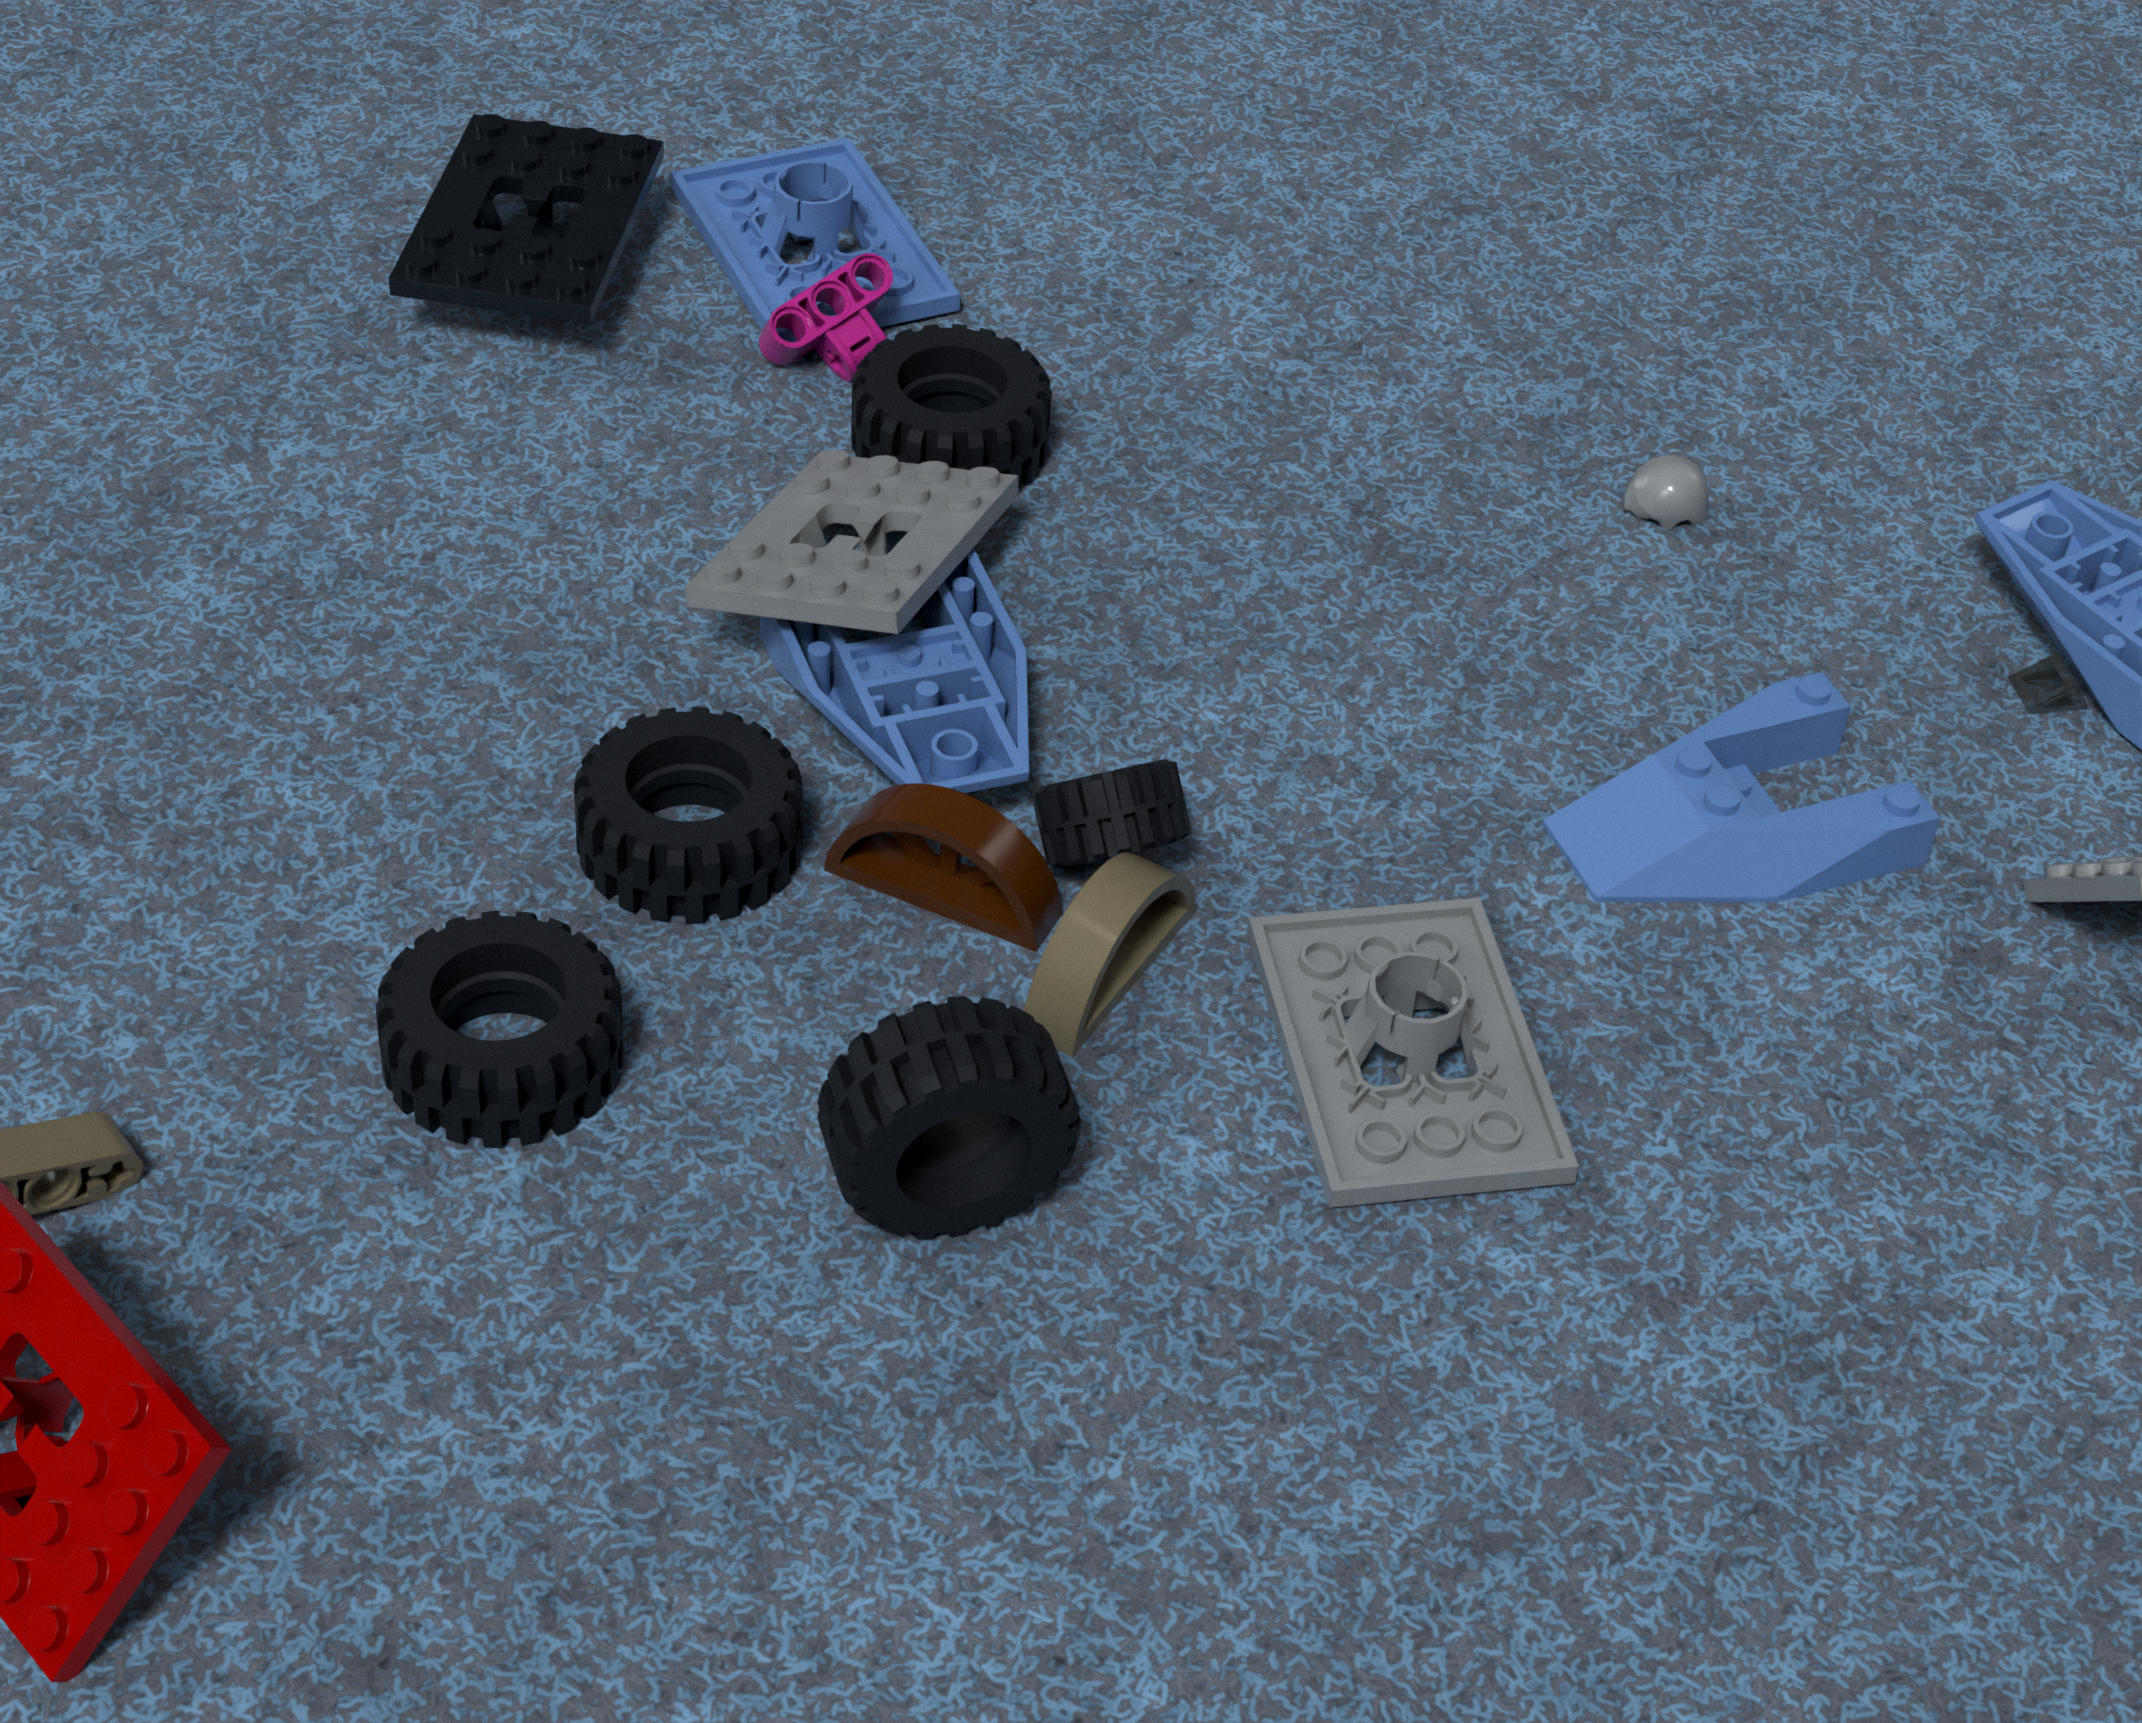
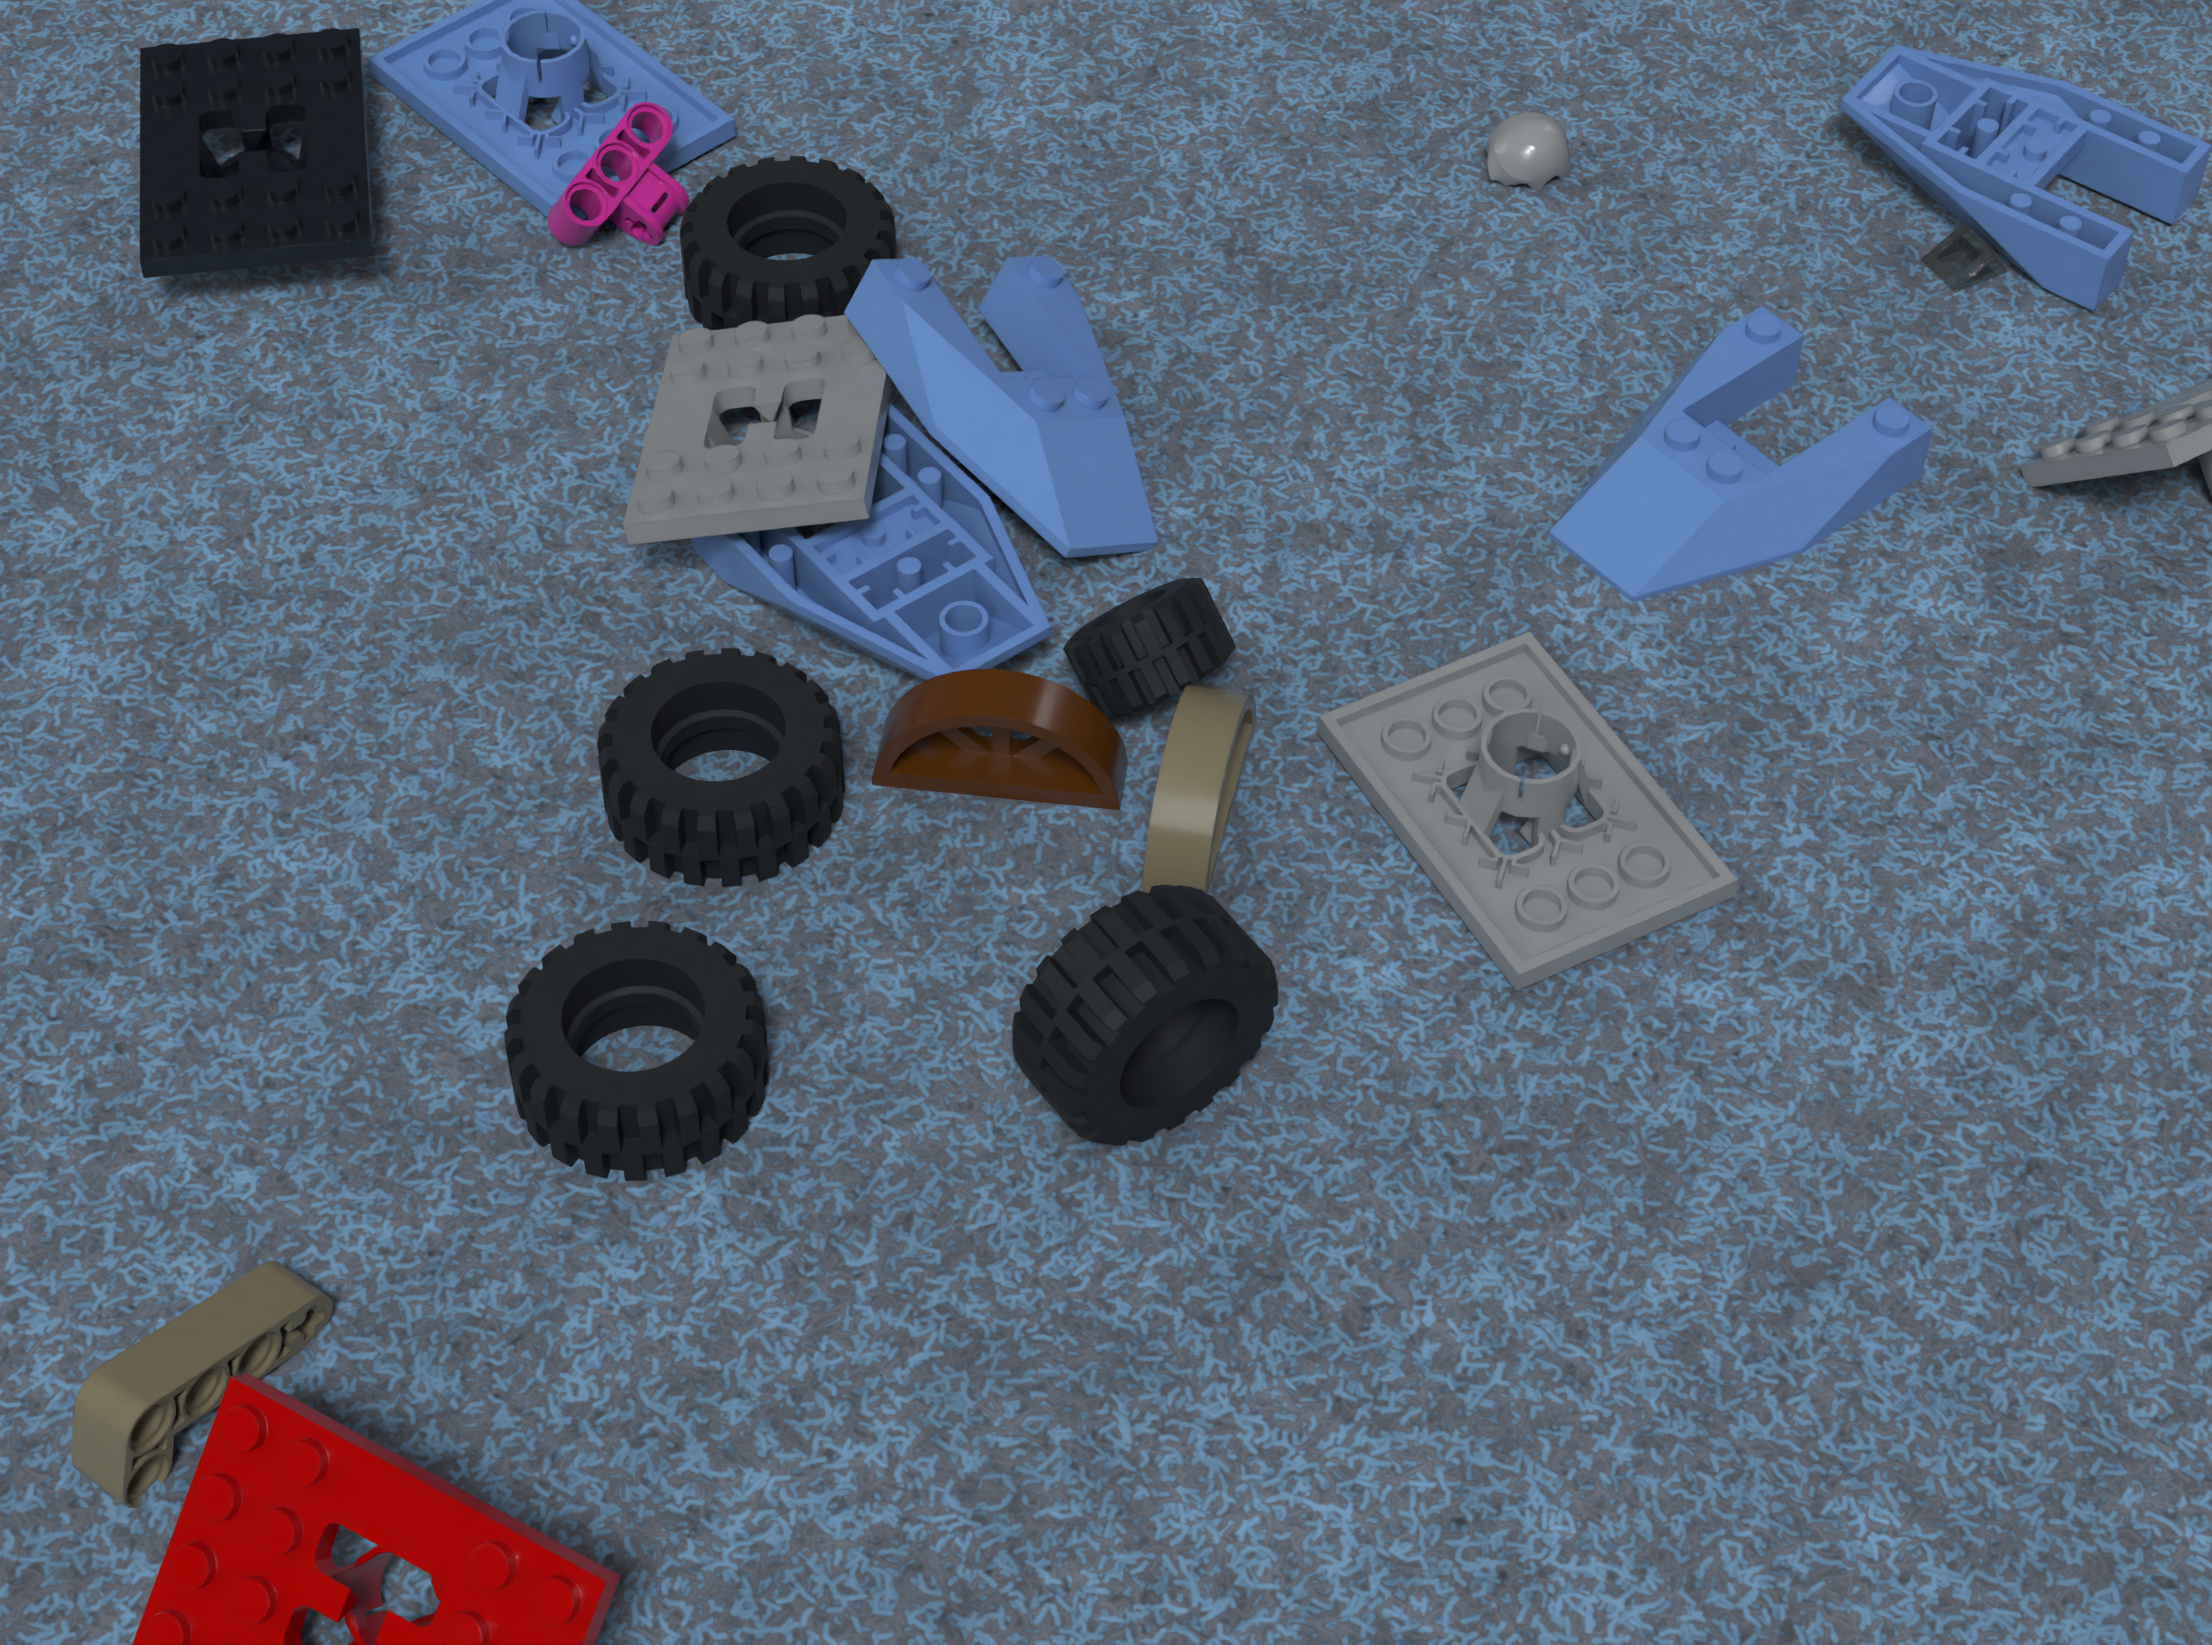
camera: 15 degrees left, 5 degrees up
(1094, 620) = (1037, 436): none -> medium blue wedge

